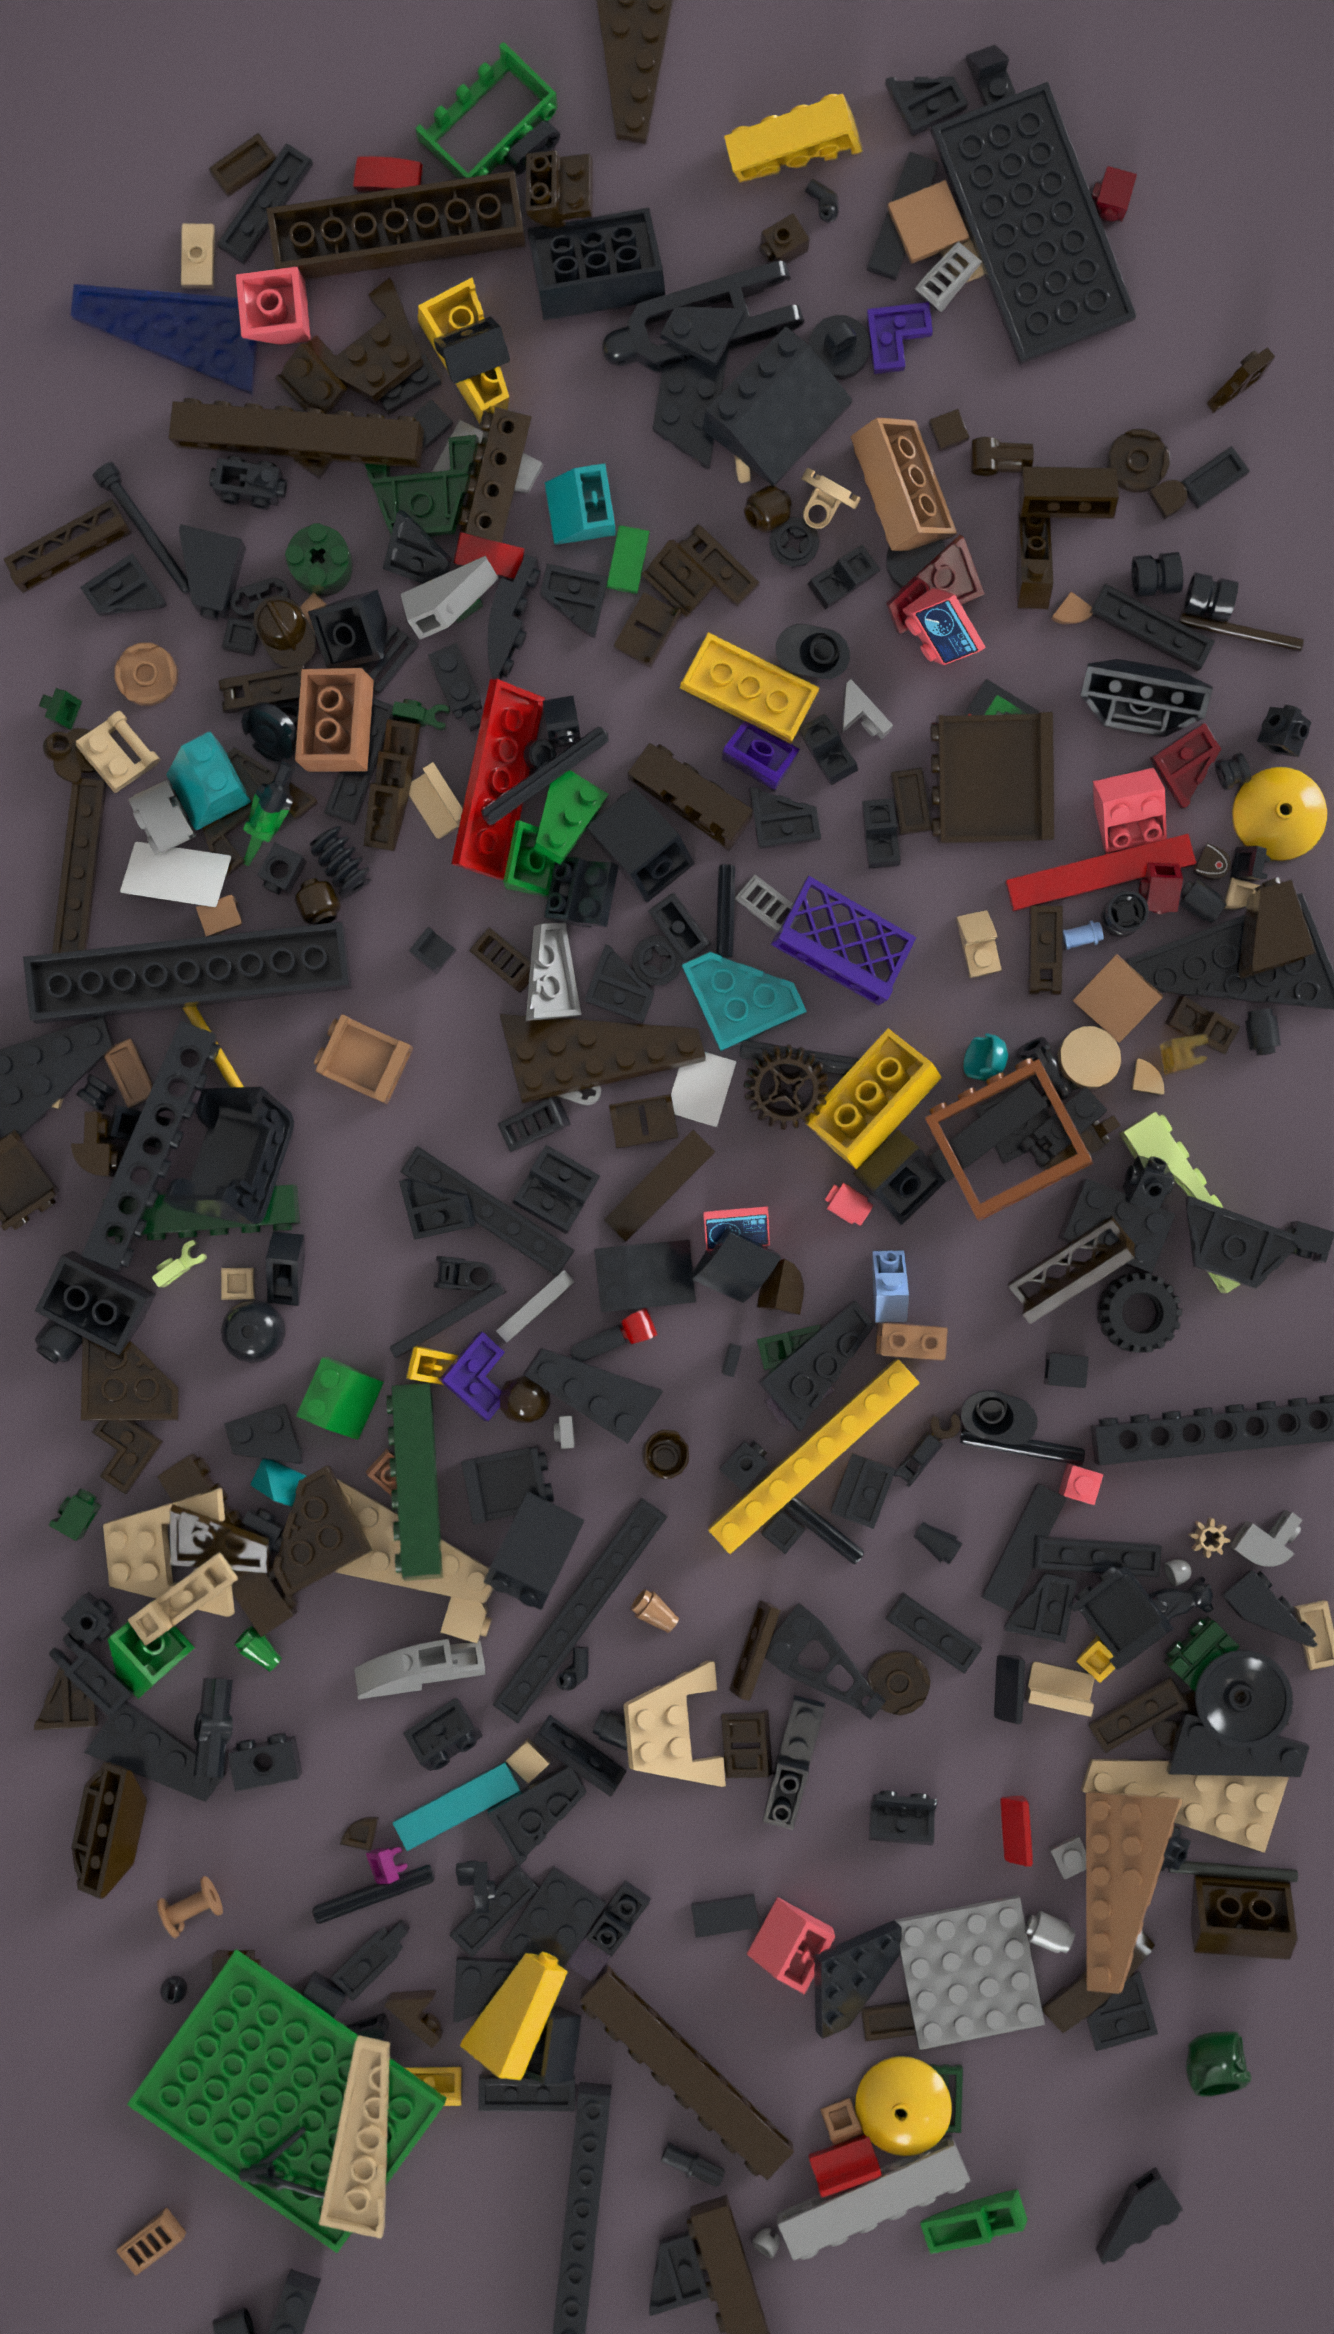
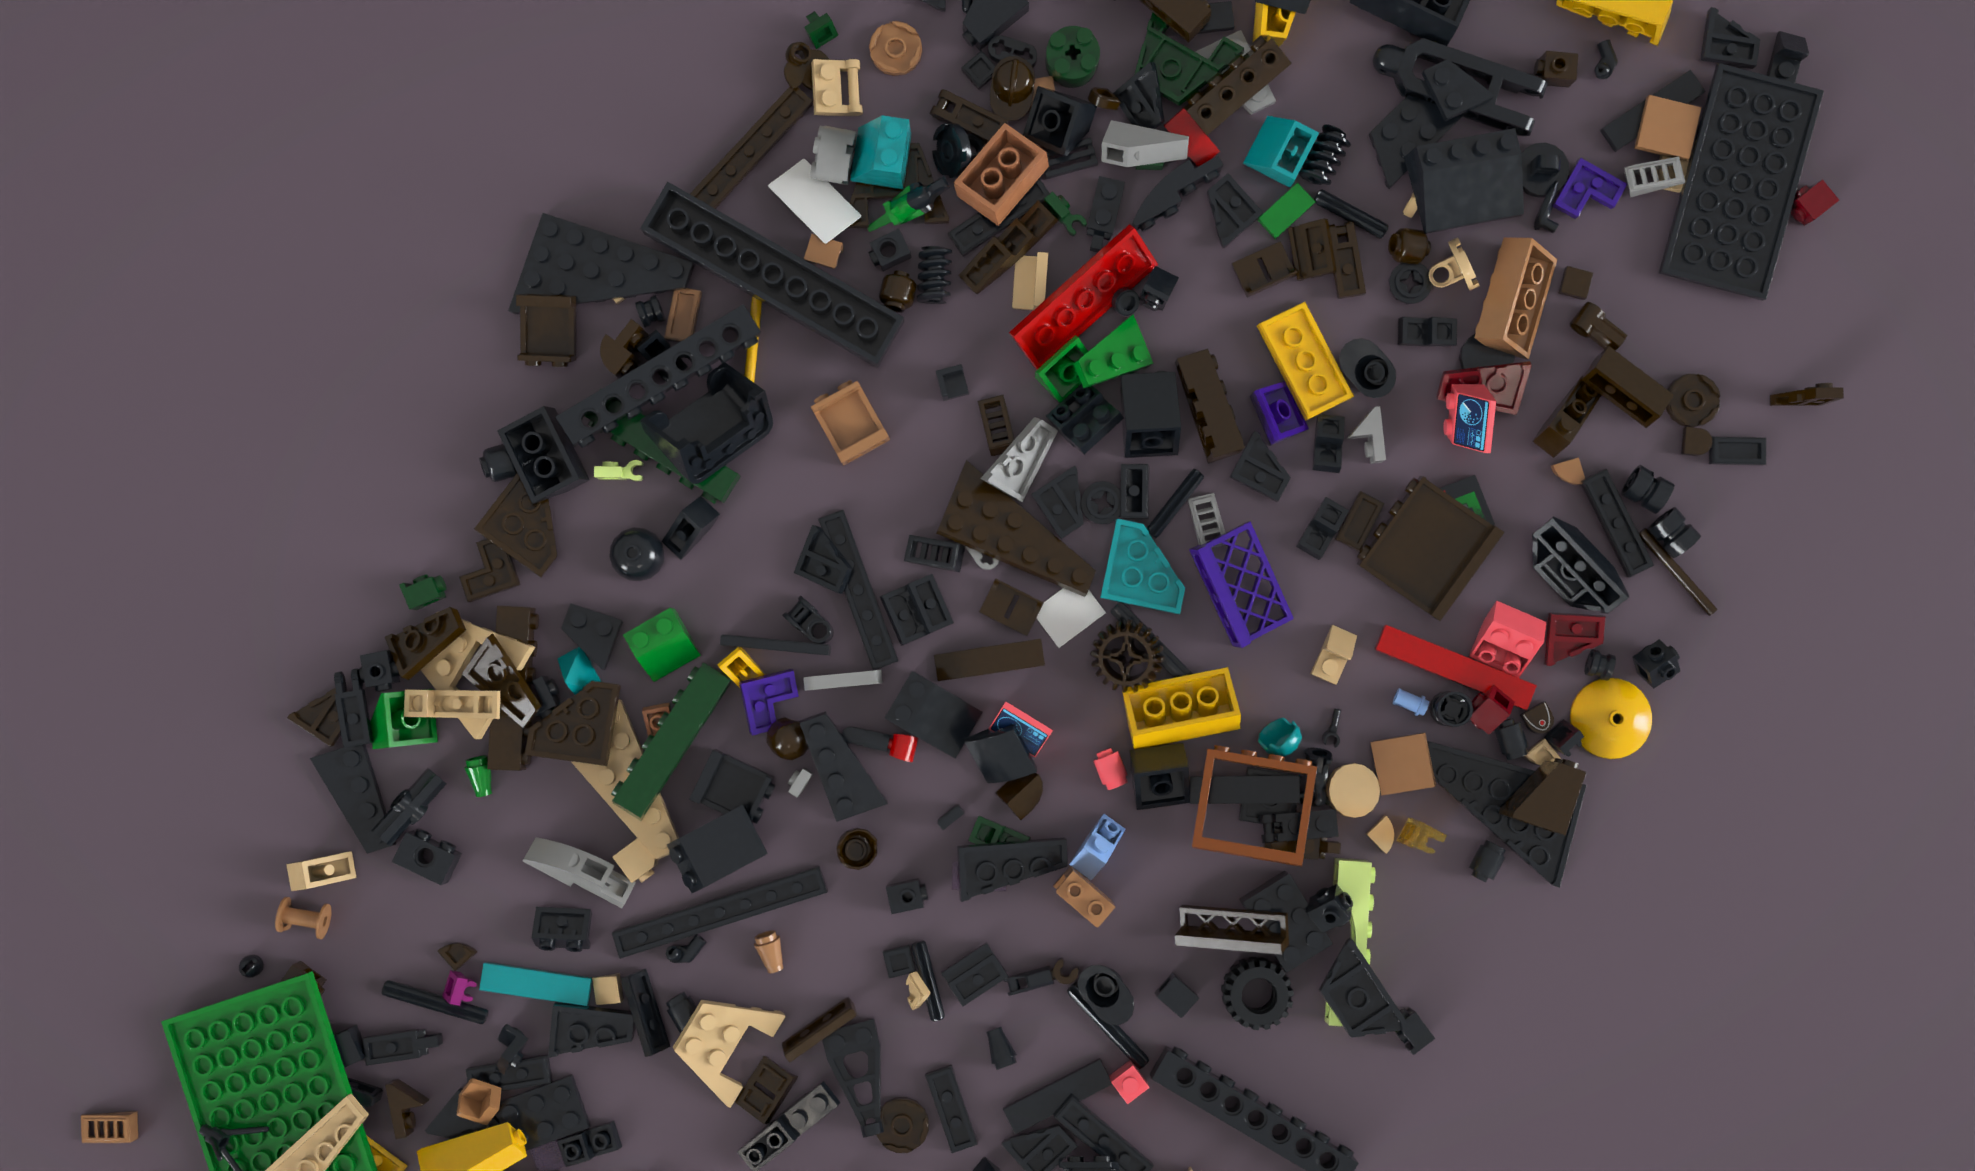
camera: 35 degrees right, 0 degrees up
(107, 1829) = (286, 823): dark brown wedge -> none
(111, 1564) = (423, 642): none -> dark brown wing
(174, 1850) = (321, 871): none -> tan slope
(237, 1283) = (650, 513): tan tile -> none
(378, 578) = (1103, 98): none -> dark brown tile
(484, 1955) = (479, 1101): none -> medium nougat panel
(544, 775) = (1113, 318): black axle -> none
(626, 481) = (1324, 155): none -> black piece
(691, 517) = (1351, 213): none -> black axle
(813, 1455) = (958, 925): yellow brick -> none
(821, 1545) = (917, 990): none -> tan tile
(873, 393) = (1542, 217): none -> black bar
(1028, 1012) = (1333, 729): none -> black hand
(1045, 949) = (1378, 692): dark brown plate -> none
(1196, 1020) = (1447, 820): dark brown slope -> none

